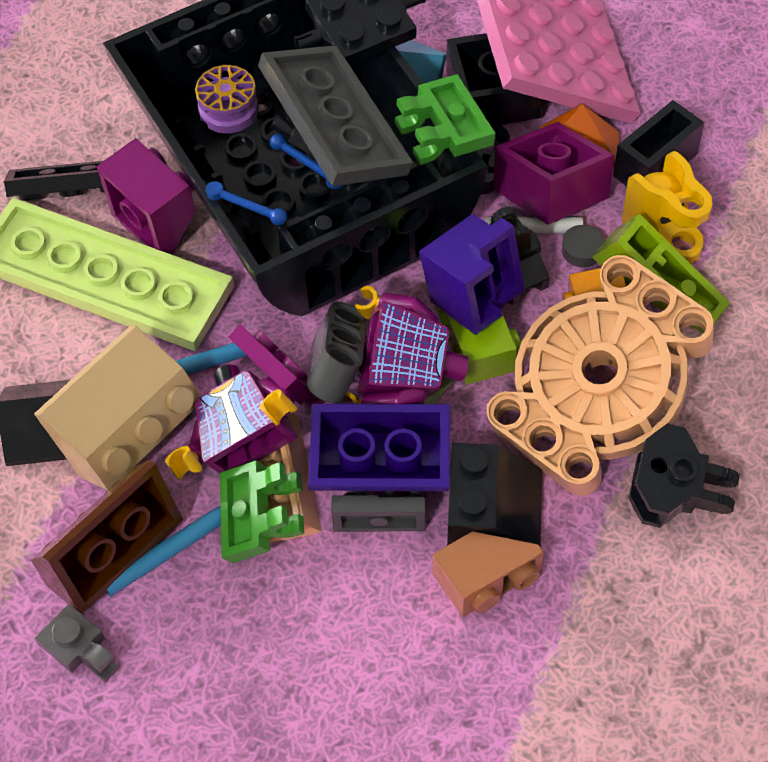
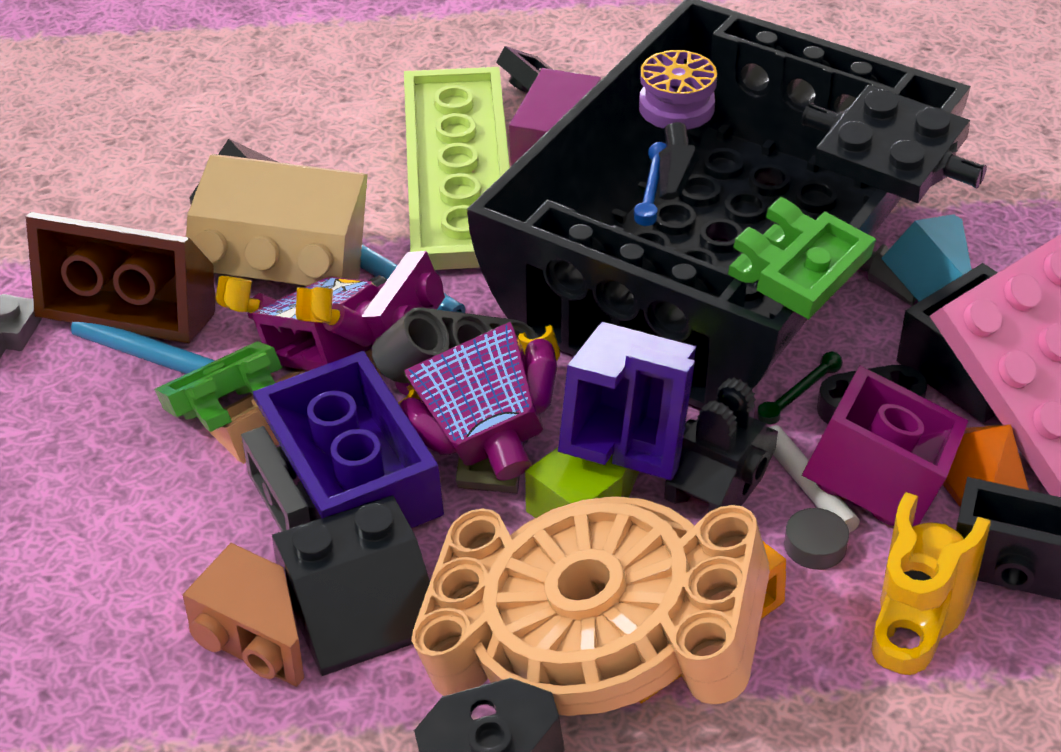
camera: 60 degrees right, 15 degrees down
(215, 192) = (554, 137): blue hinge -> none
(335, 115) = (717, 166): dark grey plate -> none
(649, 248) = (823, 629): lime slope -> none

